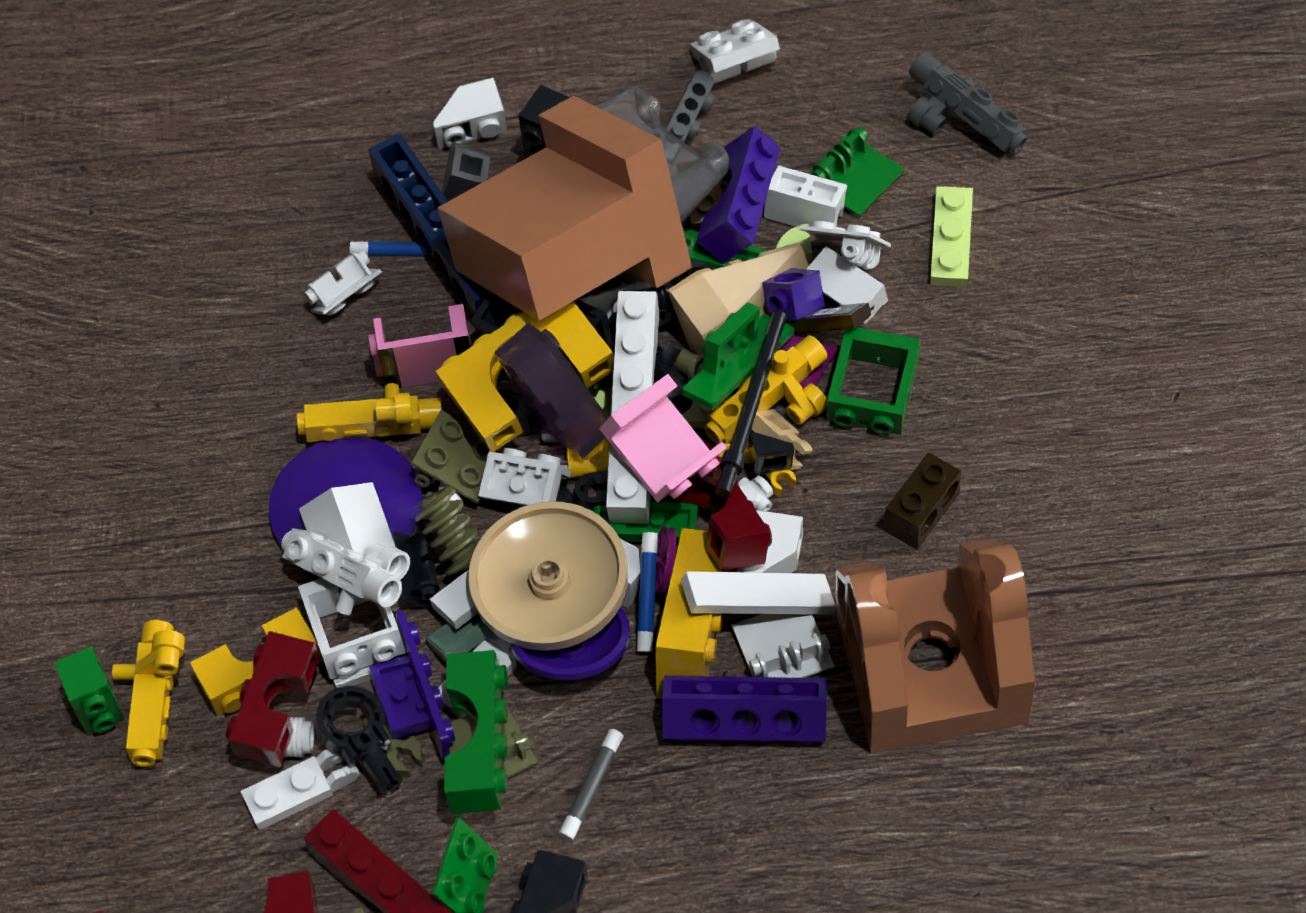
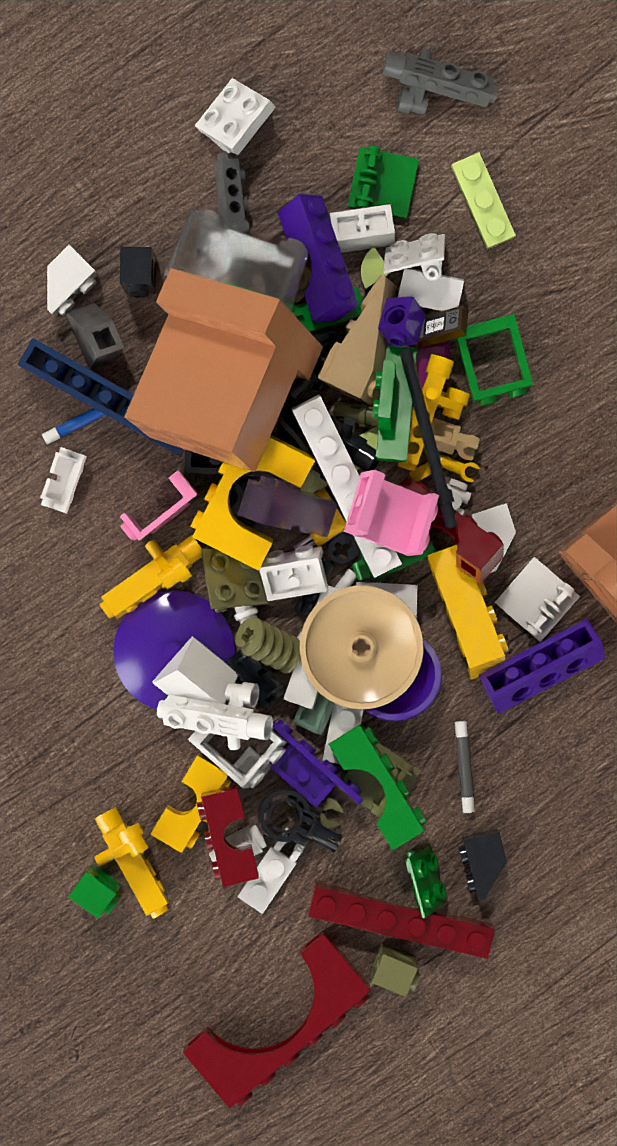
camera: 30 degrees left, 30 degrees up
(647, 592) = (428, 614): blue bar -> none
(665, 558) = (429, 588): magenta wheel -> none
(757, 593) = (509, 581): white tile -> none
(769, 453) = (454, 466): black slope -> none
(922, 500) = (578, 441): dark brown brick -> none

